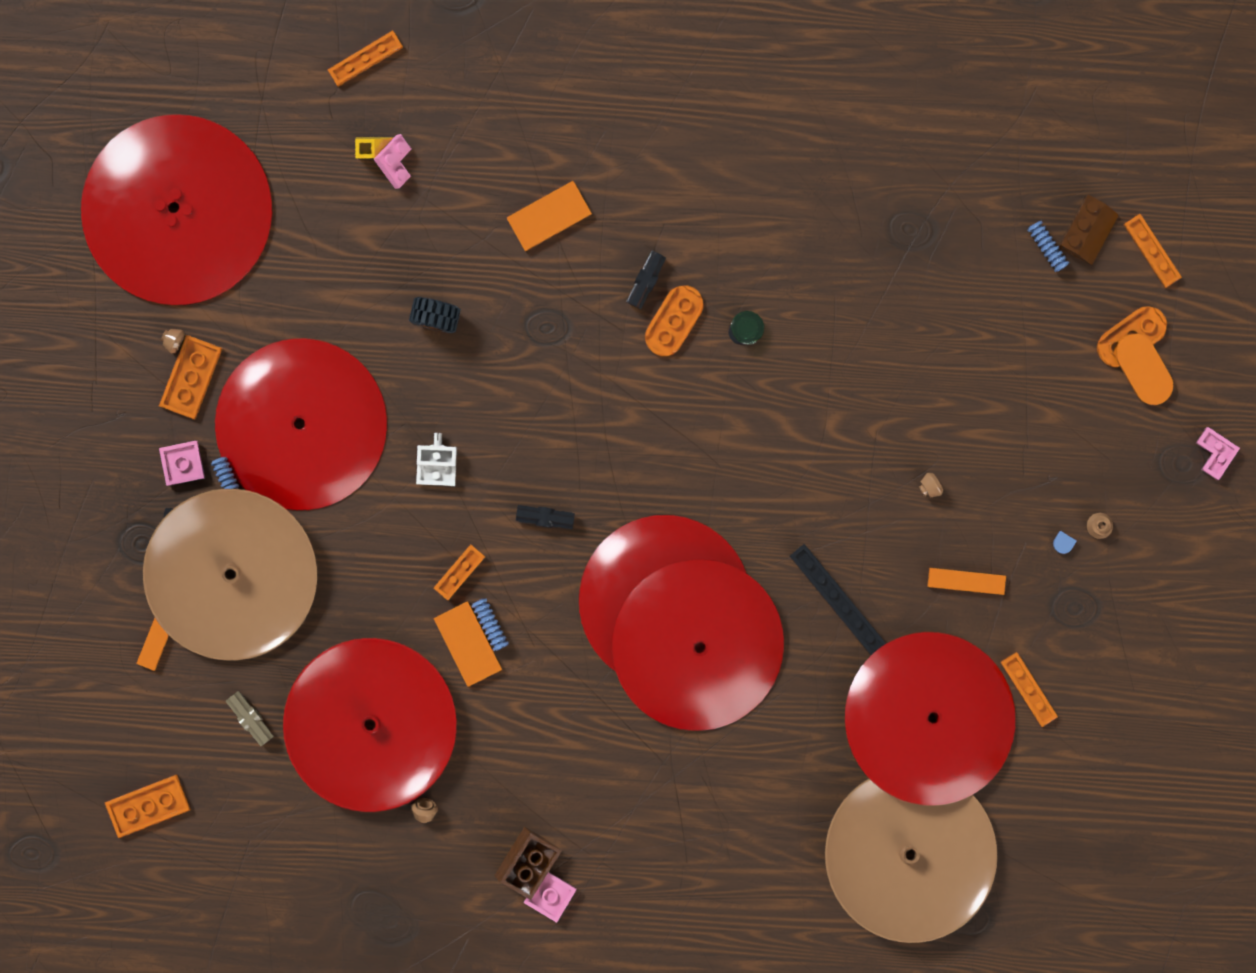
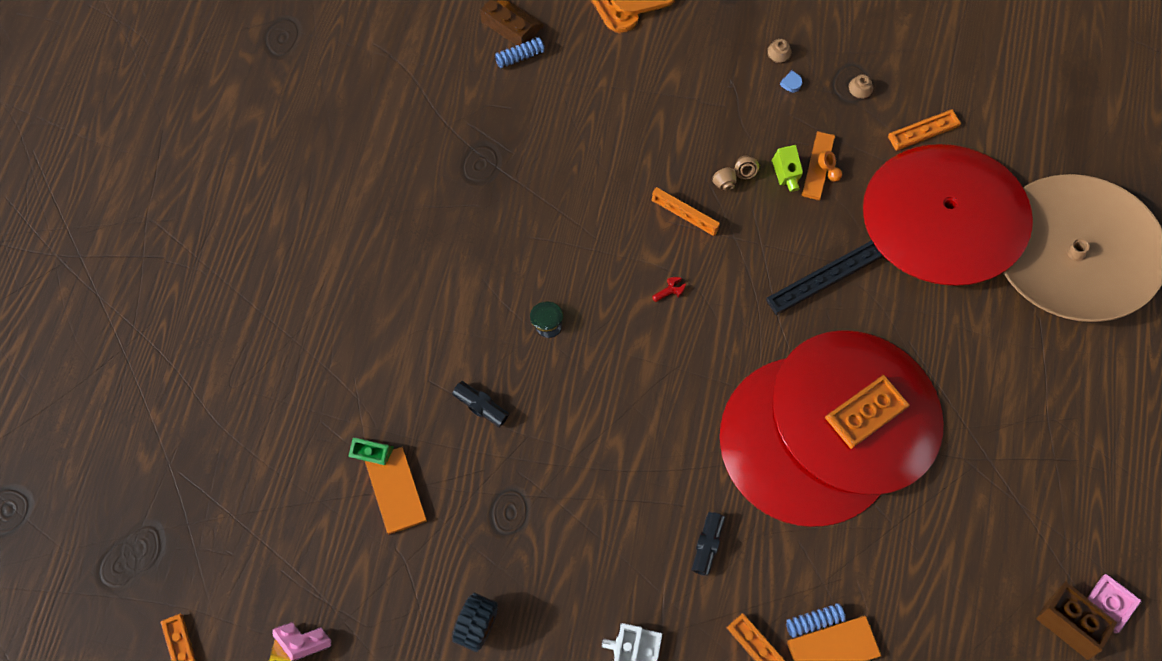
camera: 85 degrees left, 20 degrees down
(582, 184) = (370, 451): none -> green slope
(674, 320) = (526, 385): orange tile -> none
(690, 650) = (867, 411): none -> orange tile
(798, 445) = (670, 289): none -> red bar
(886, 449) = (685, 211): none -> orange tile
(948, 505) = (746, 167): none -> medium nougat cone
(960, 545) = (788, 167): none -> lime torso
(967, 589) = (827, 162): none -> orange plate
(1063, 617) = (861, 86): none -> medium nougat cone

